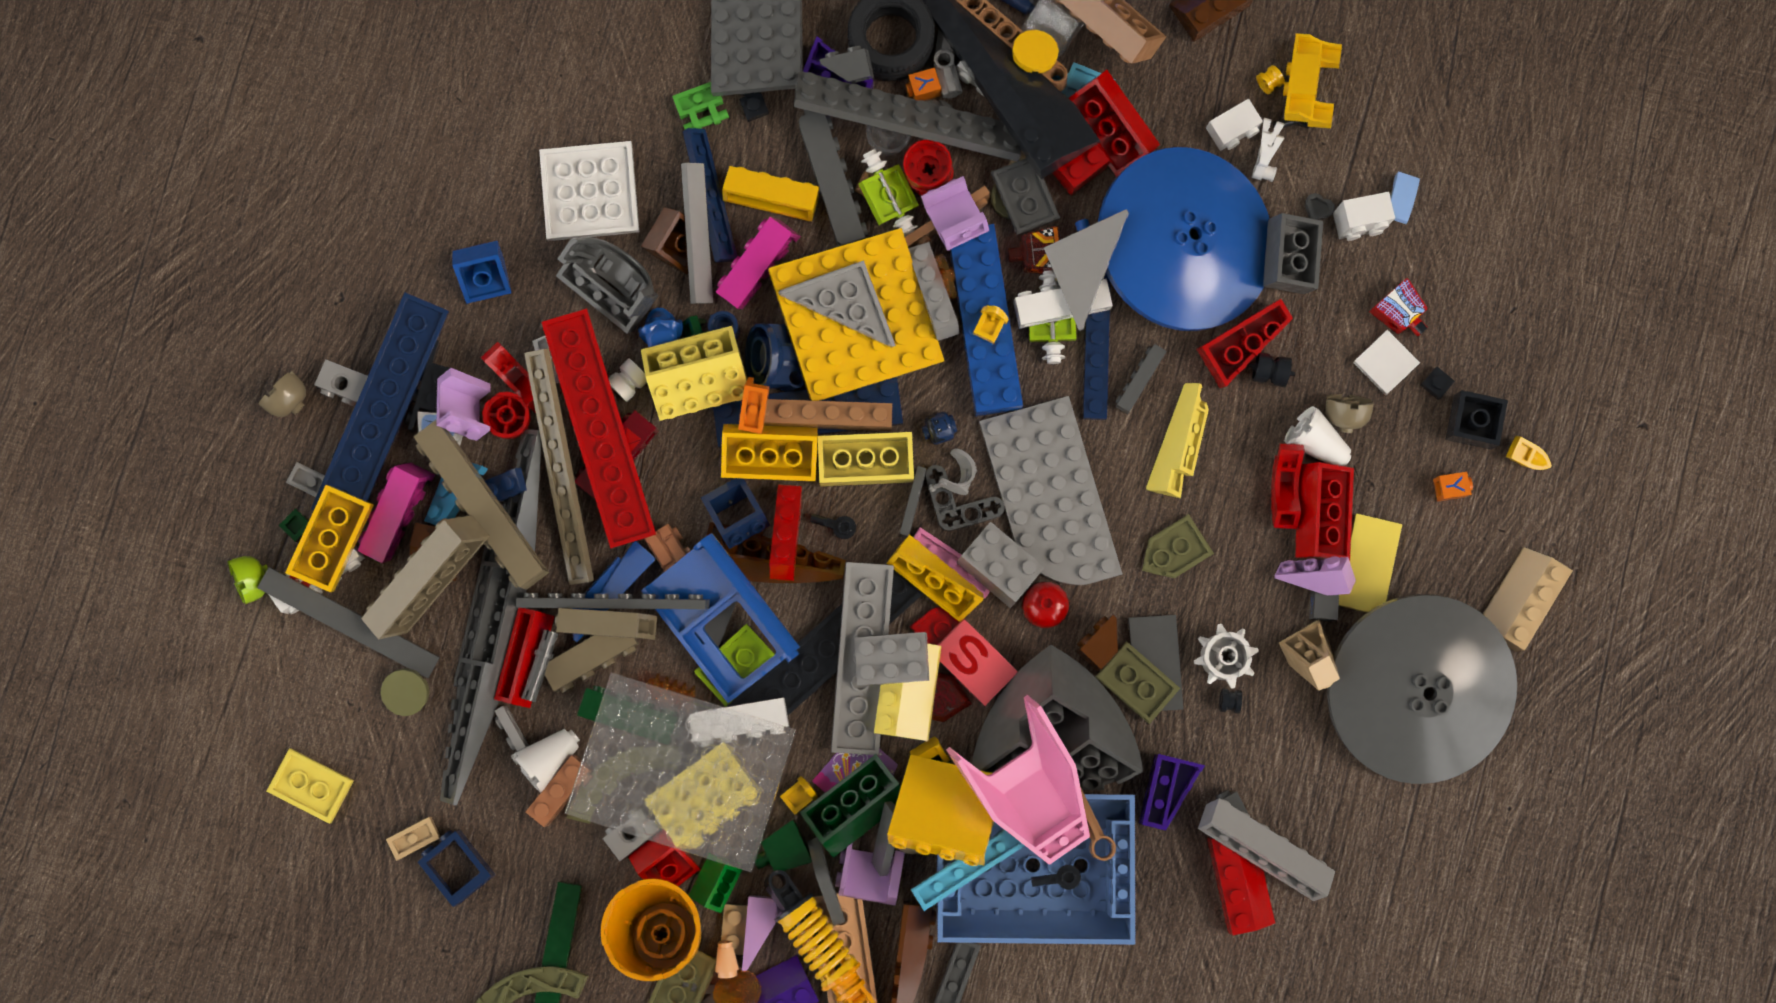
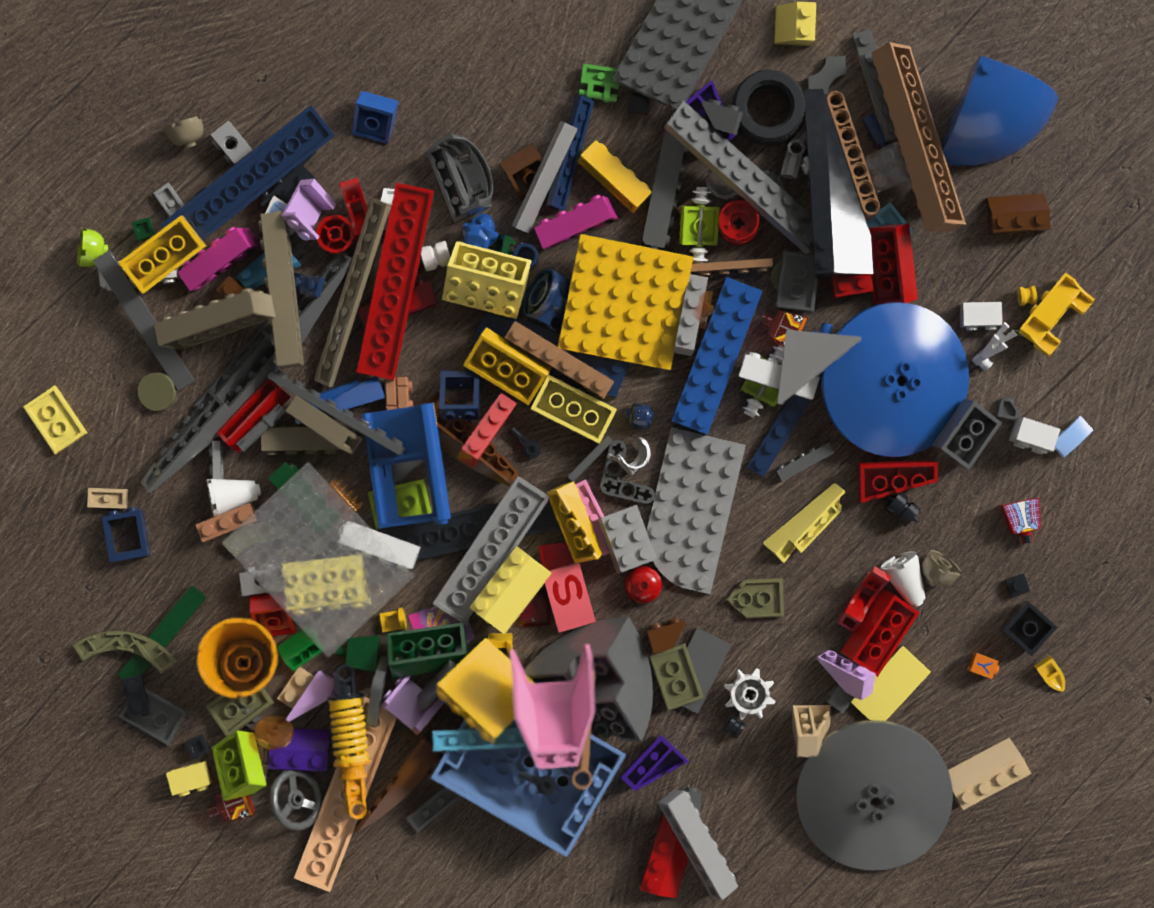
camera: 30 degrees right, 5 degrees up
(589, 191) = (484, 100): white plate -> none
(726, 960) = (278, 706): light nougat cone -> none
(753, 407) = (513, 329): orange panel -> none
(845, 298) = (623, 286): light grey tile -> none
(892, 659) = (510, 563): light grey plate -> none
(923, 85) = (770, 158): orange brick -> none
(954, 213) = (737, 267): lavender panel -> none
(990, 323) = (717, 363): yellow tile -> none
(1035, 51) = (864, 181): yellow tile -> none
(1386, 362) = (989, 549): white tile -> none

